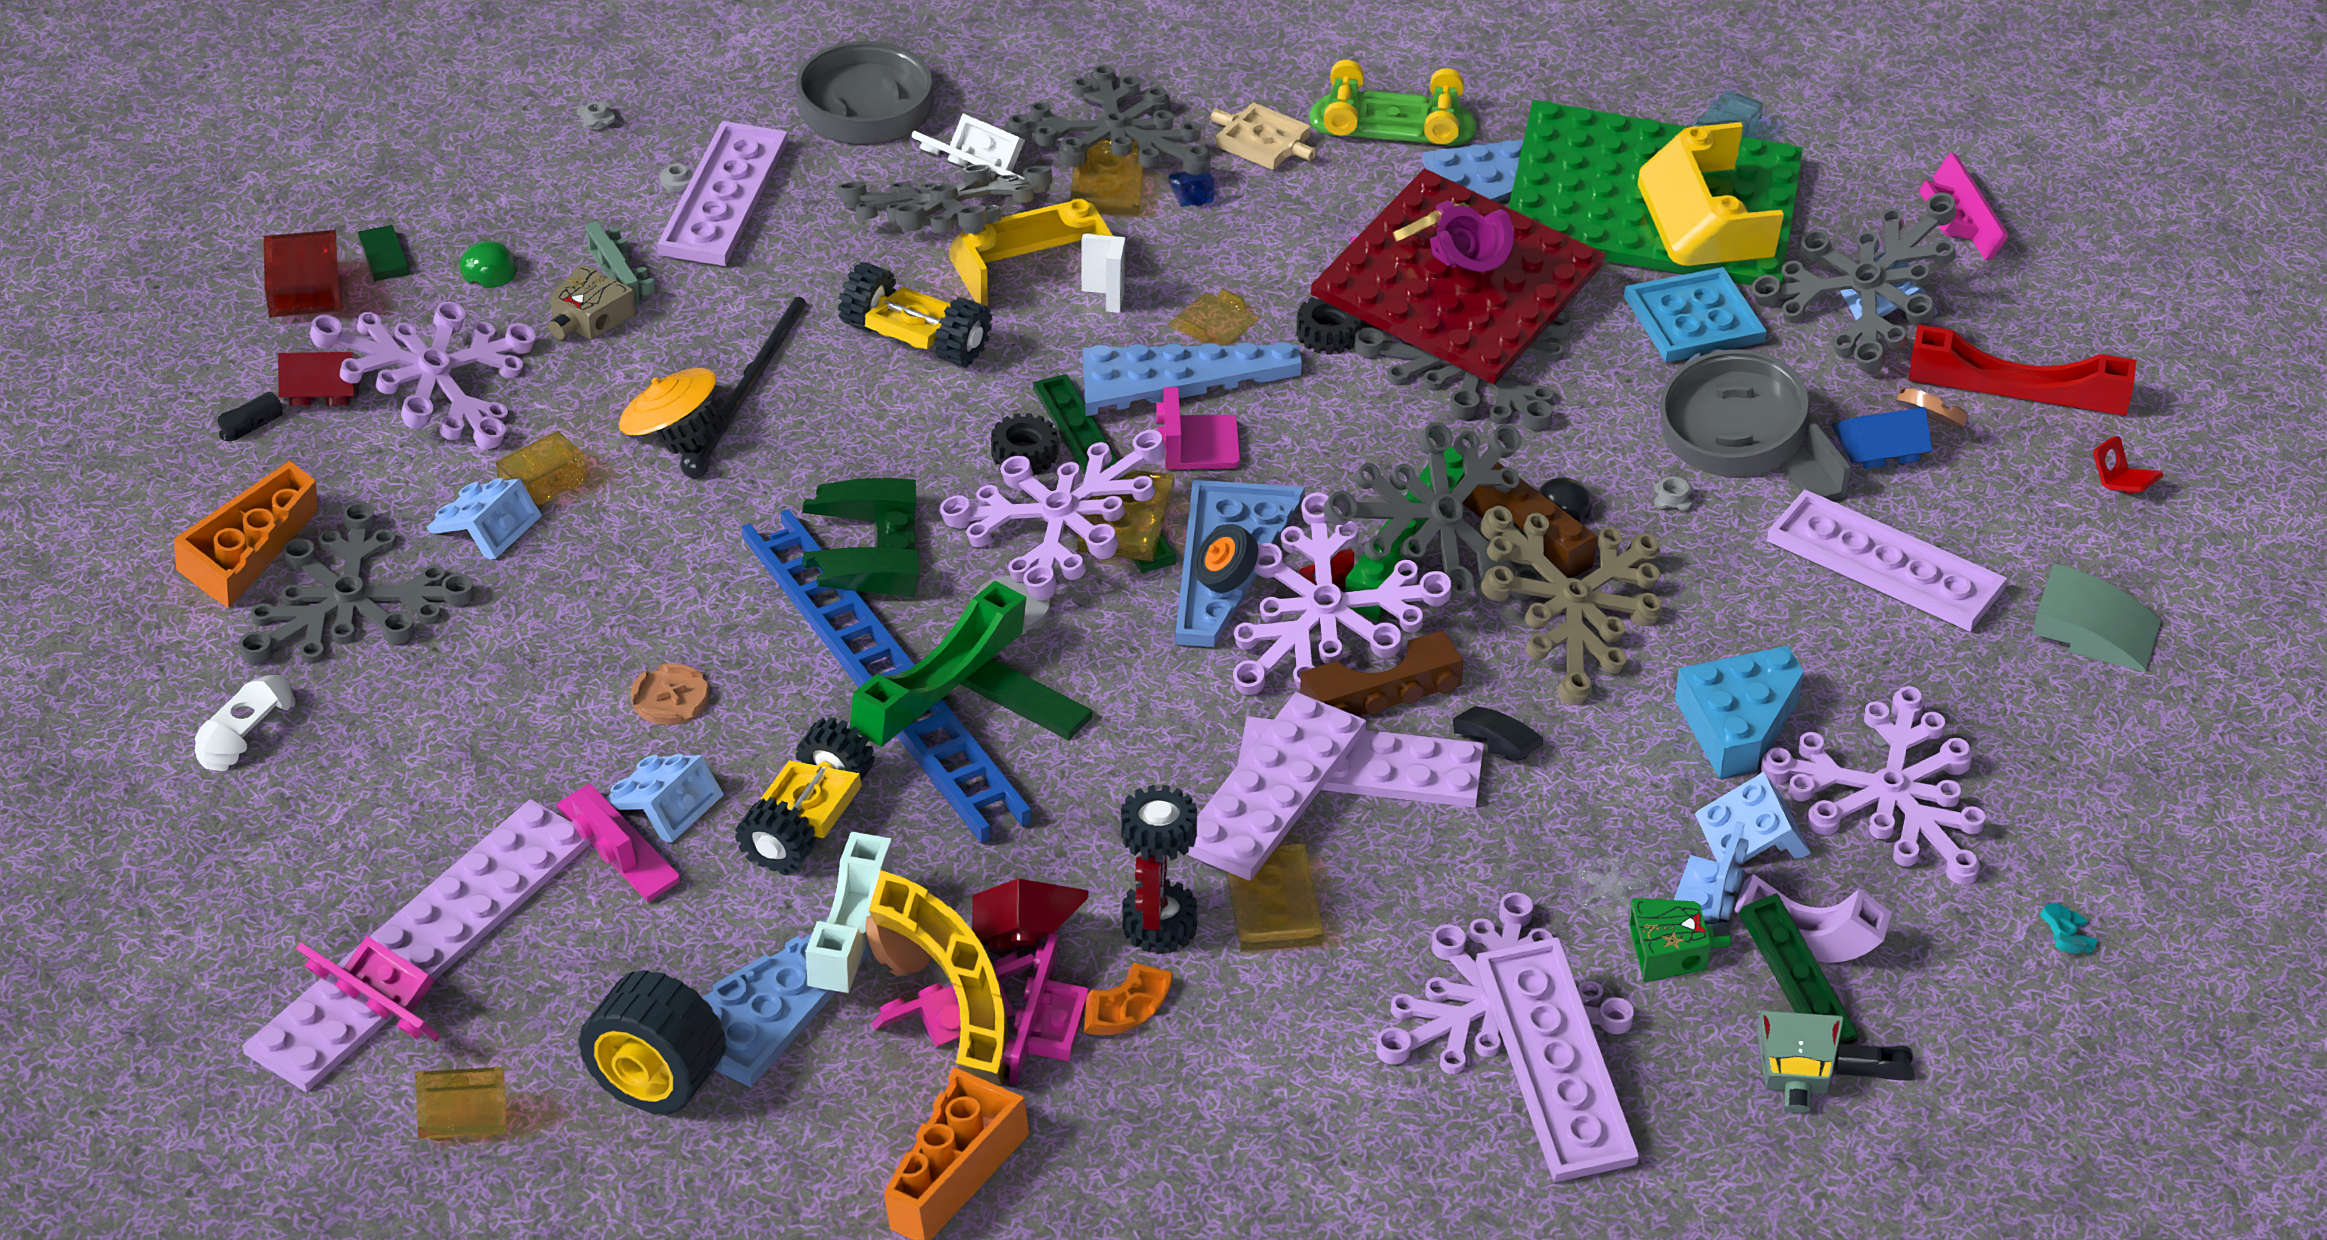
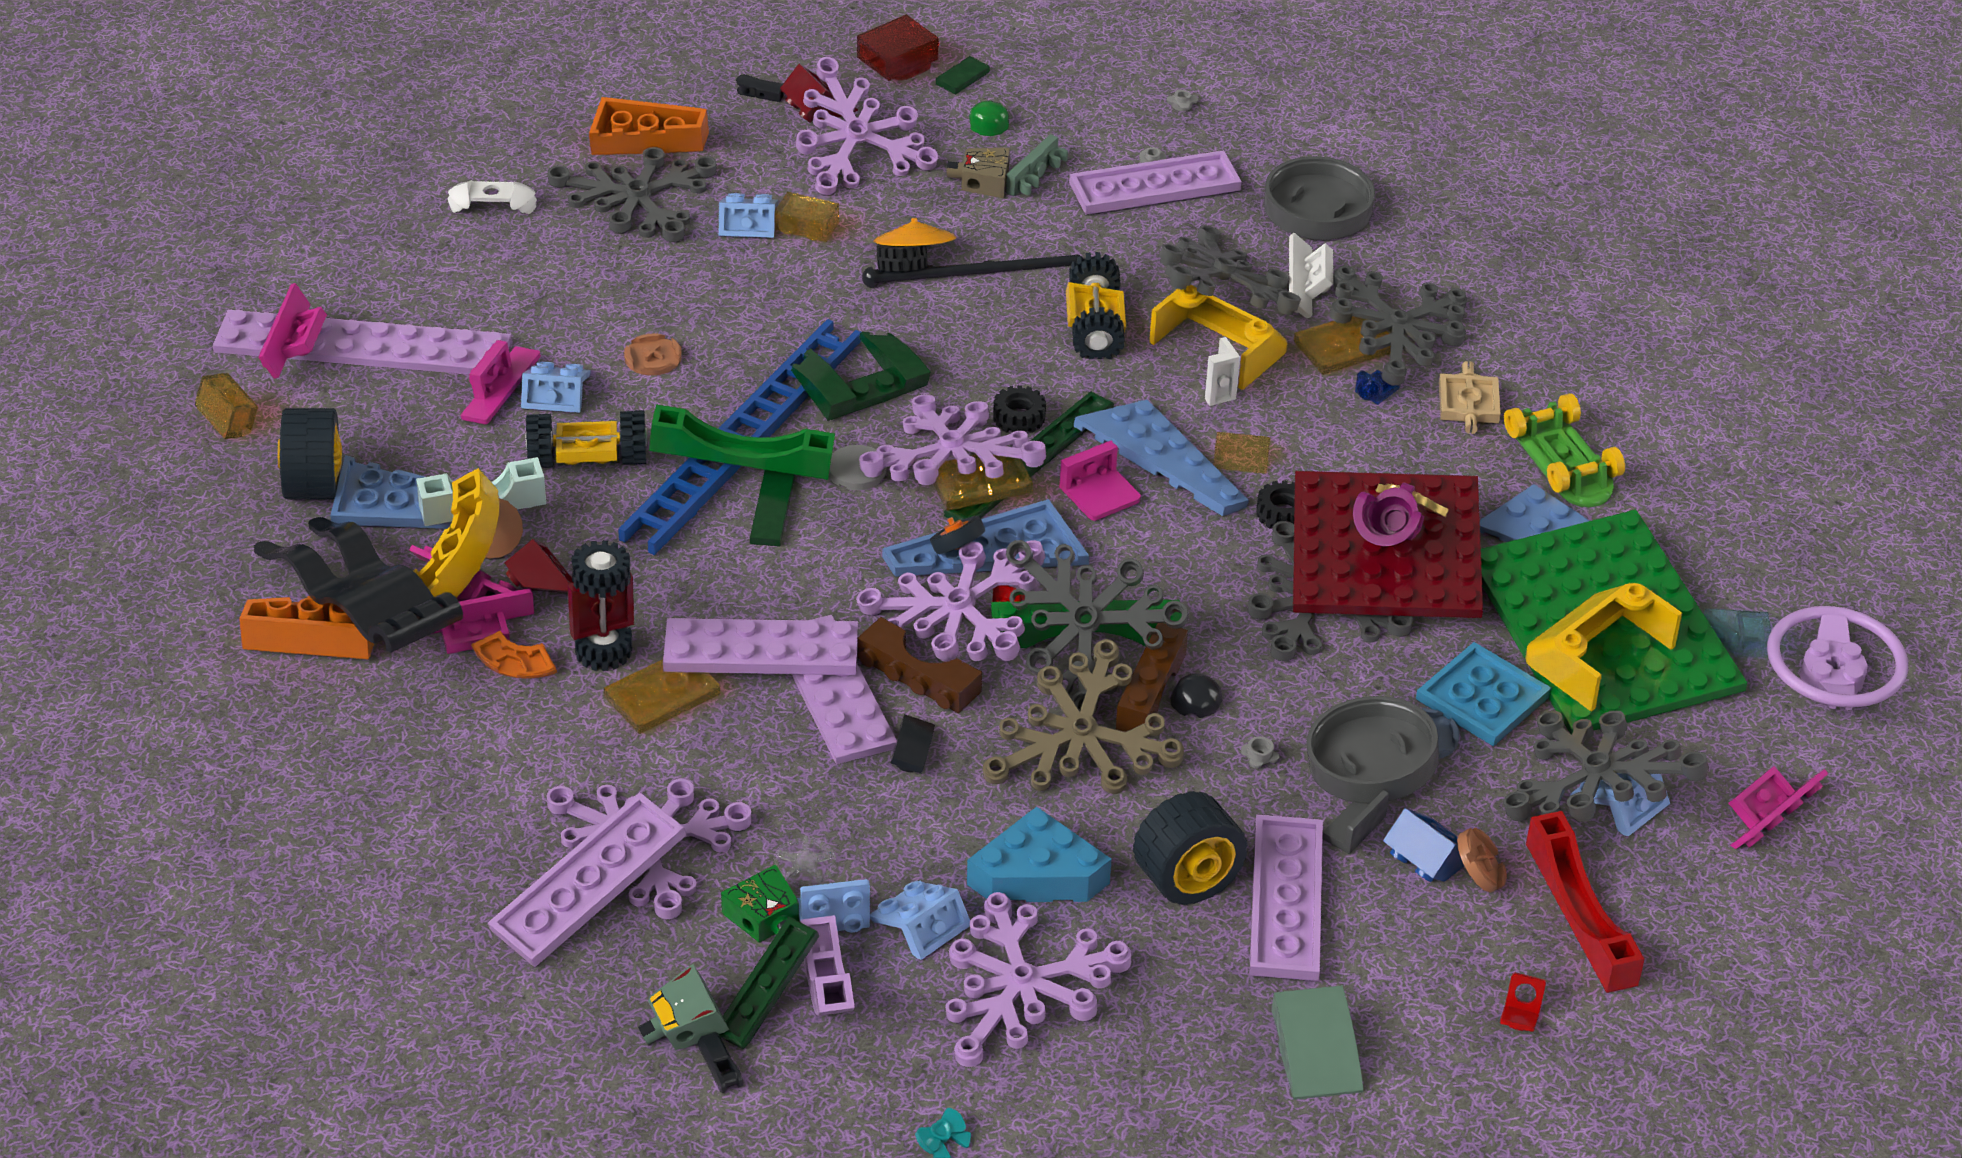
camera: 60 degrees right, 0 degrees up
(943, 1072) = (378, 598): none -> black flag
(1813, 91) = (1833, 665): none -> lavender piece
(1815, 582) = (1190, 848): none -> black wheel

